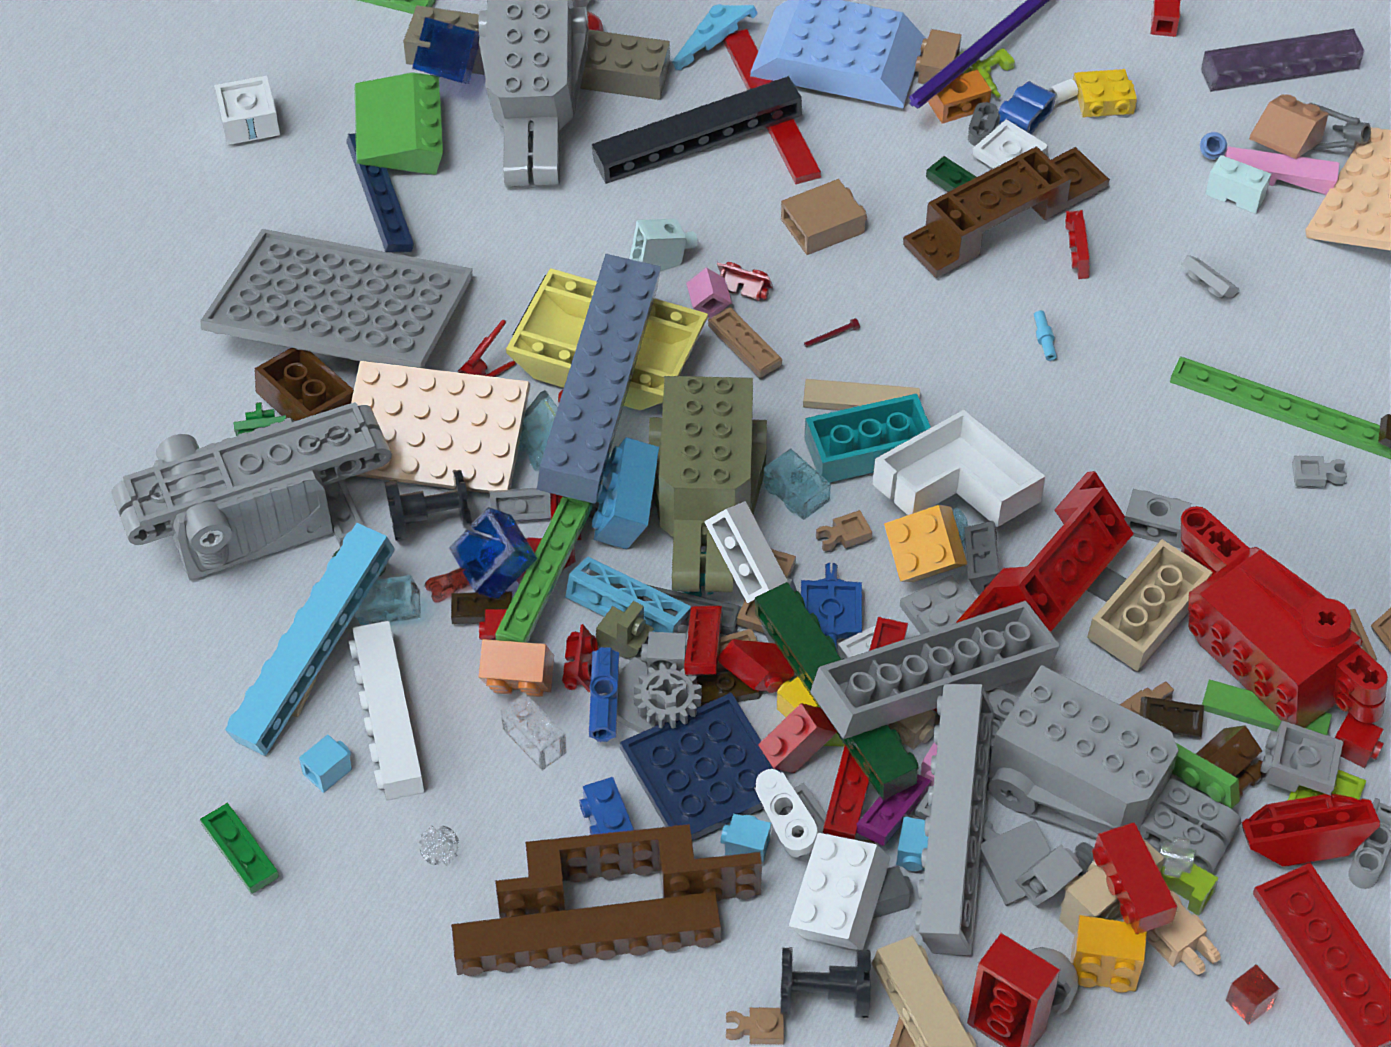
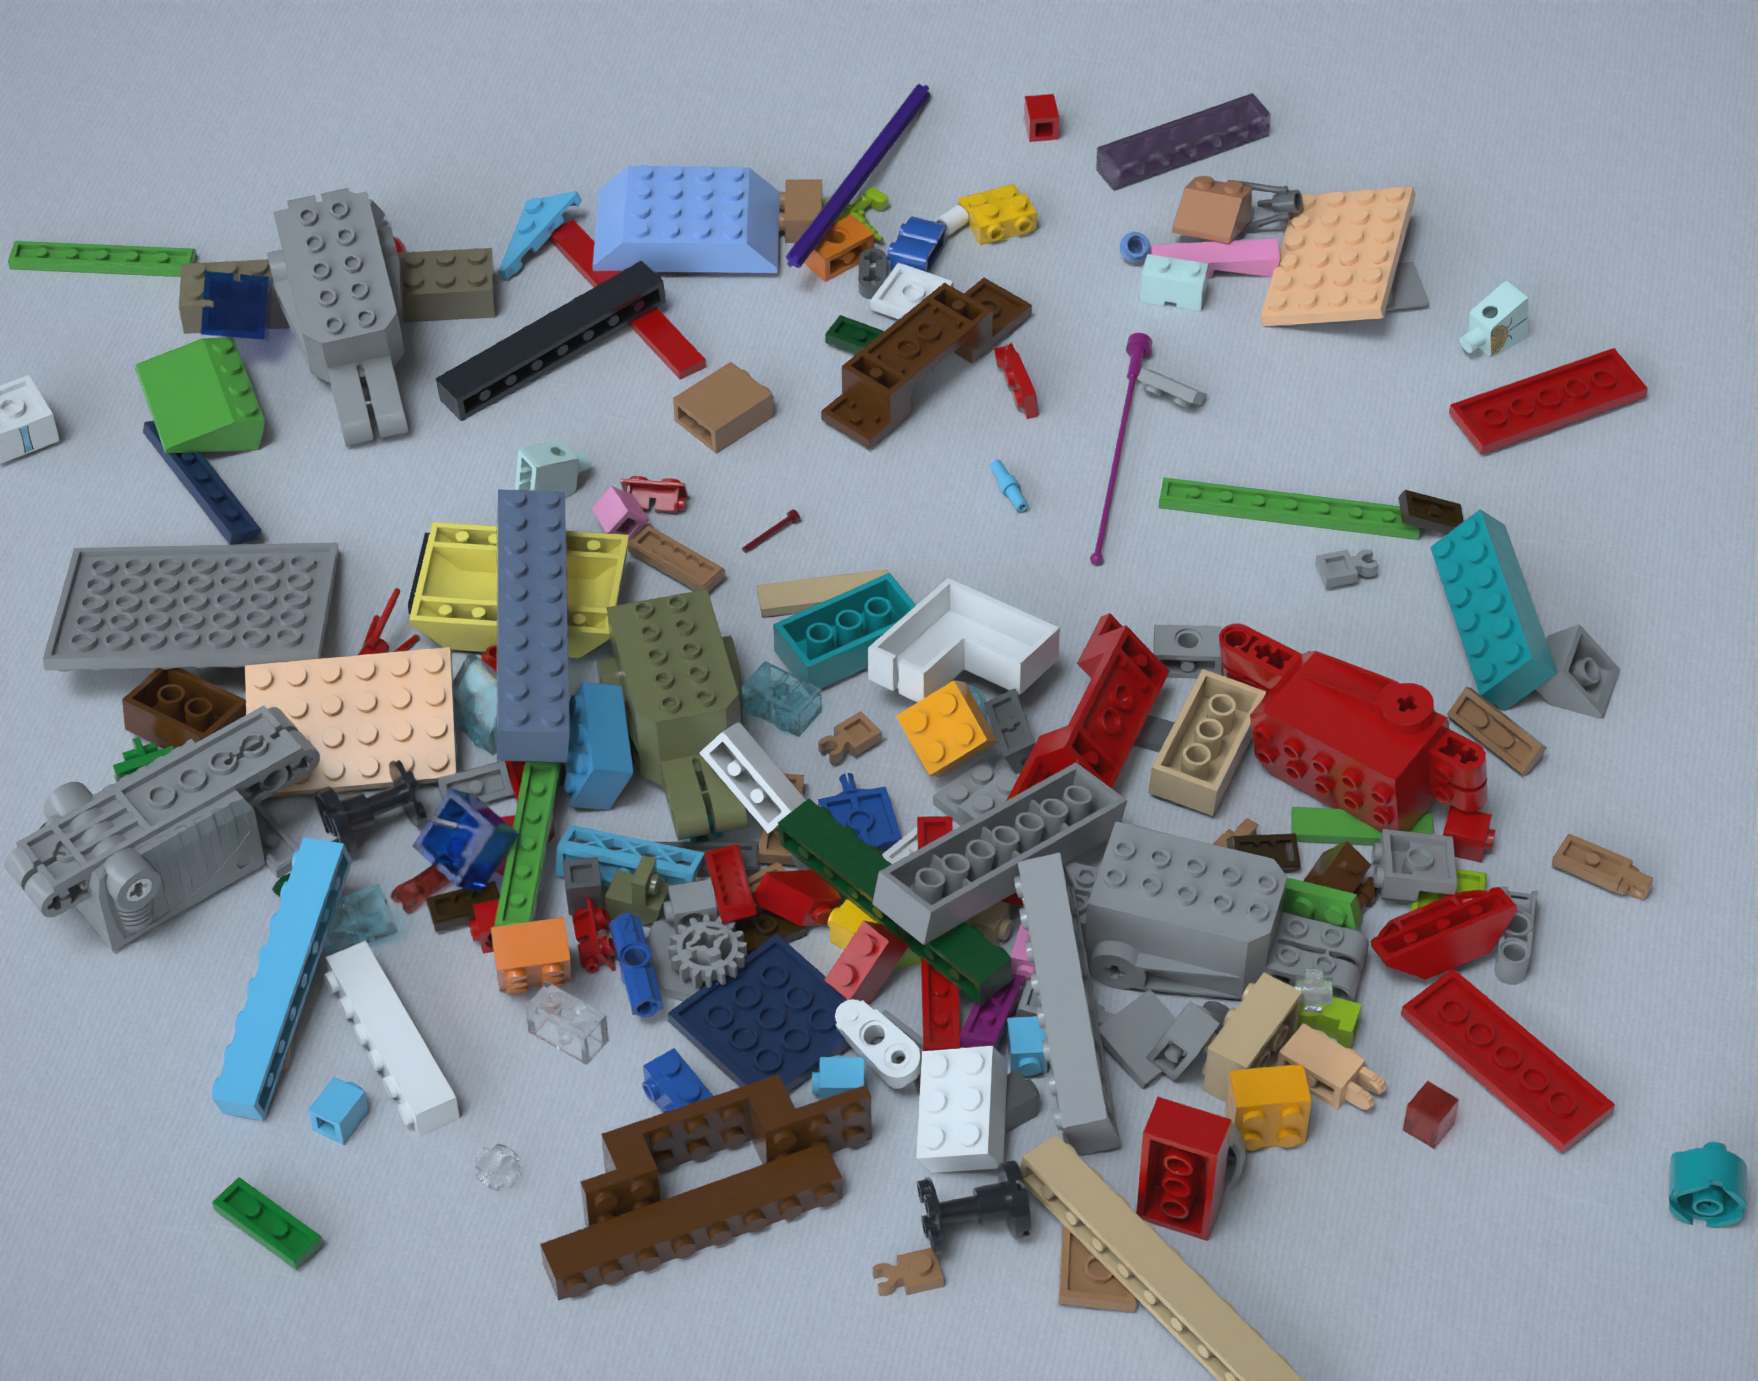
camera: 15 degrees left, 5 degrees down
(581, 608) = (582, 881): none -> dark grey brick
(1134, 878) = (1278, 1017): red brick -> none
(1191, 236) = (1138, 348): none -> magenta piece

